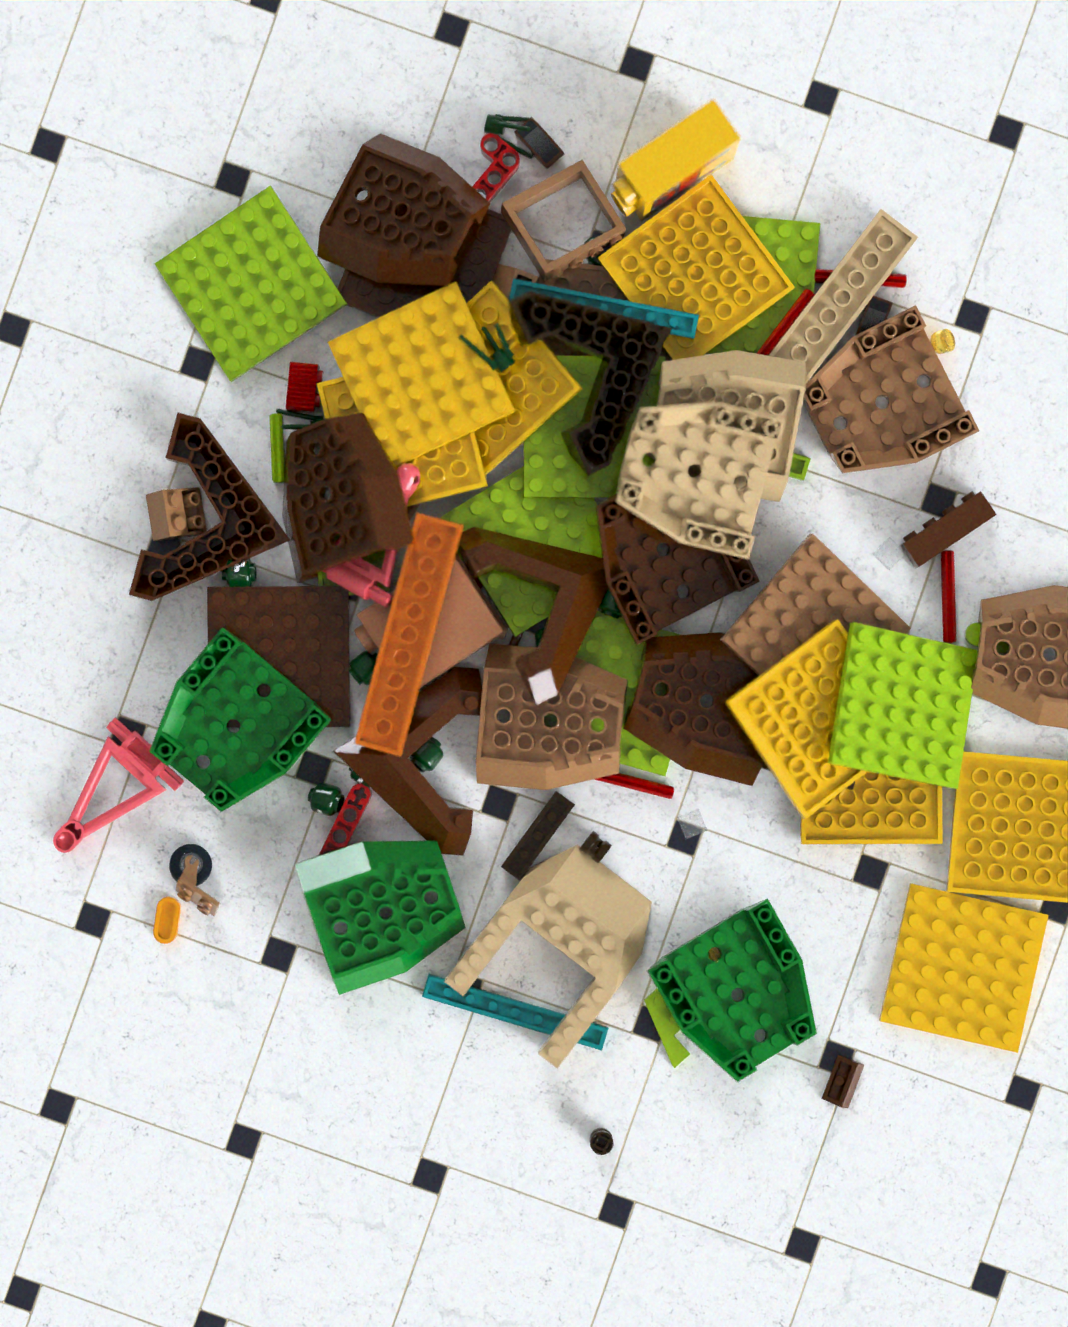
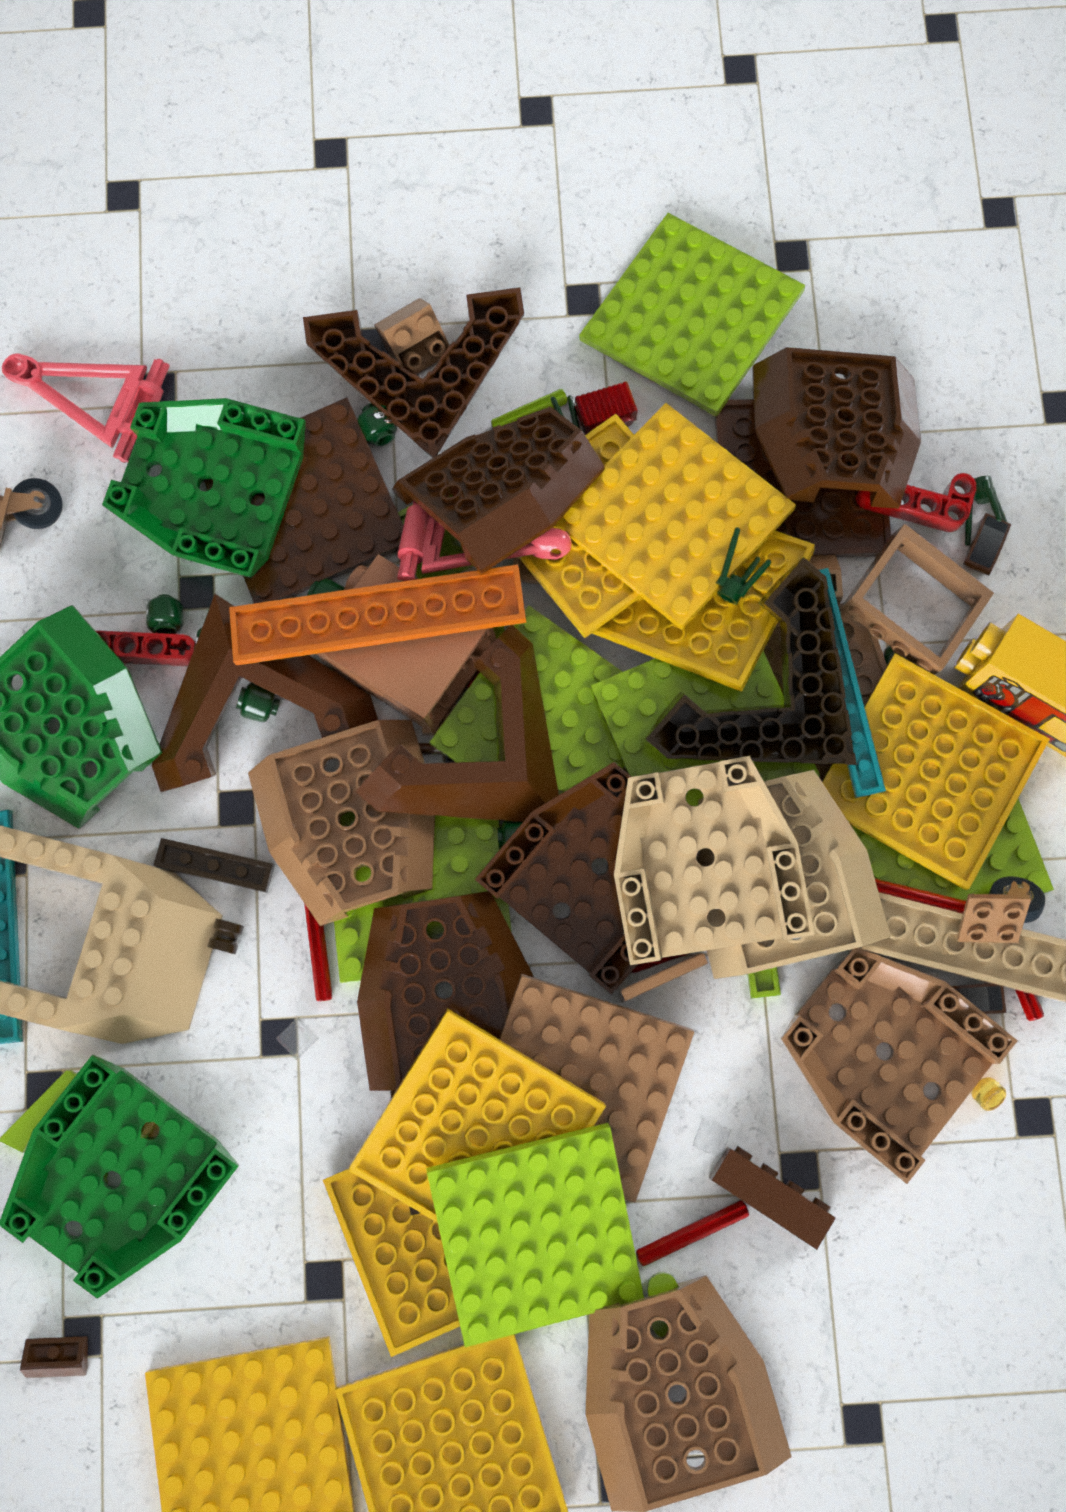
camera: 70 degrees right, 10 degrees down
(763, 539) = (662, 977): none -> medium nougat tile
(819, 262) = (1002, 912): none -> medium nougat plate

